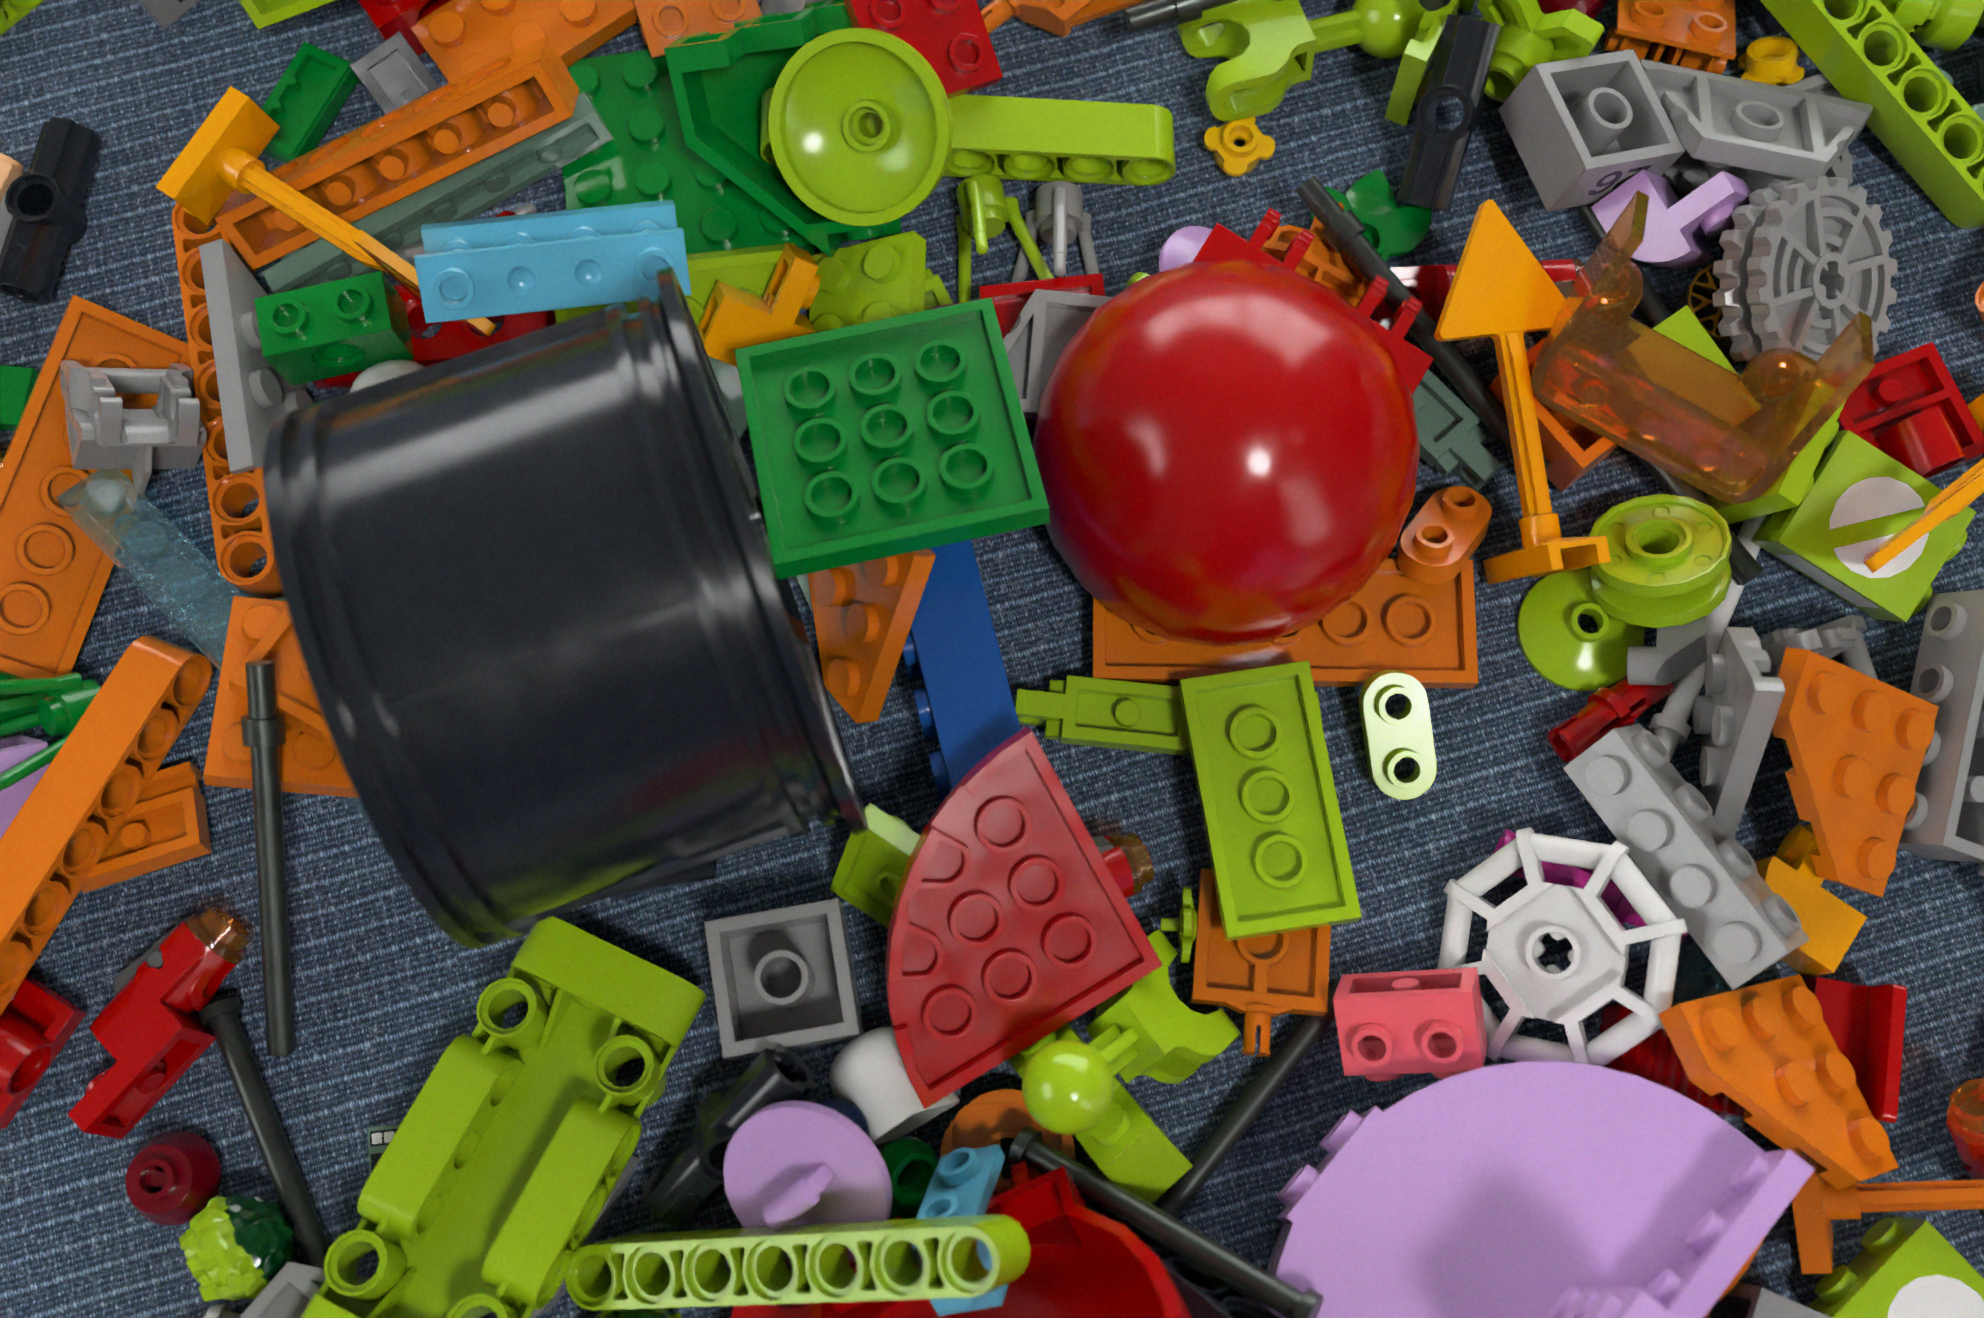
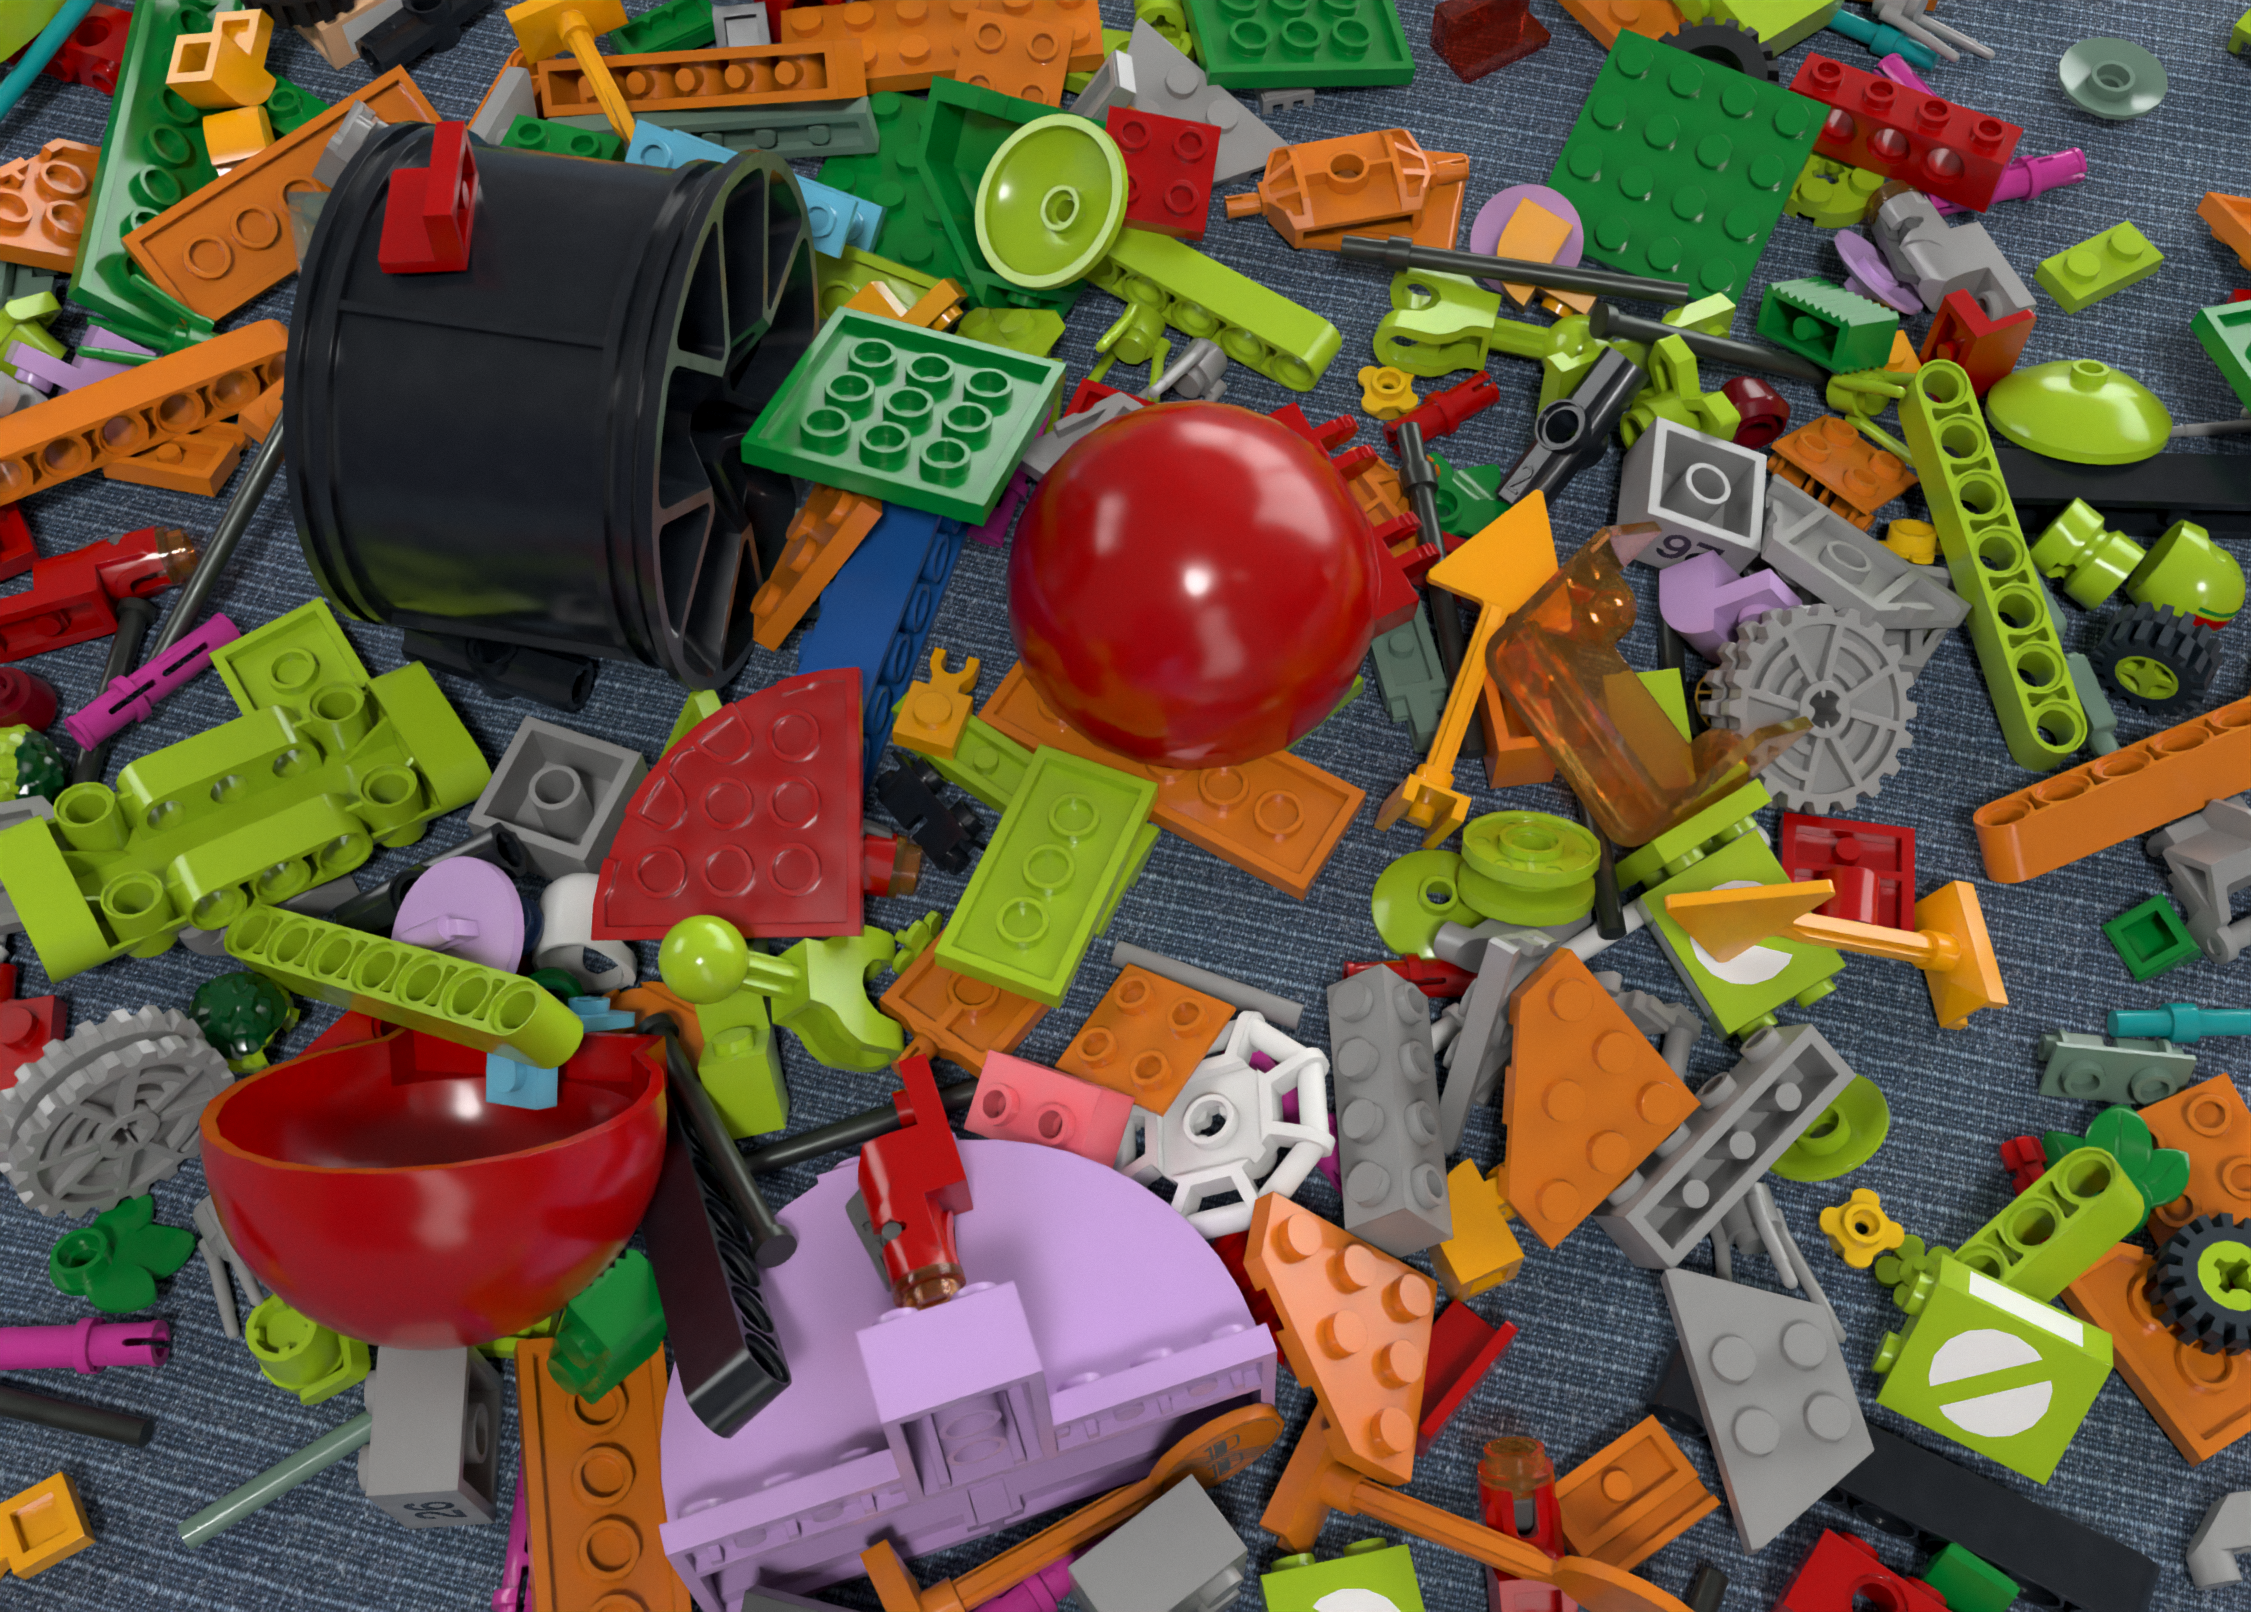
camera: 30 degrees right, 15 degrees down
(299, 1077) = (95, 723): none -> dark pink pin
(409, 559) = (432, 208): none -> red panel
(419, 987) = (288, 660): none -> lime plate
(1062, 697) = (937, 712): none -> light orange plate
(1133, 792) = (918, 793): none -> black hinge
(1302, 143) = (1445, 410): none -> red pin
(1393, 1206) = (910, 1195): none -> red plate
(1397, 736) = (1209, 894): plate -> none
(1442, 812) = (1230, 991): none -> light grey bar
(1443, 535) = (1354, 759): orange plate -> none
(1443, 903) = (1146, 1038): none -> orange hinge

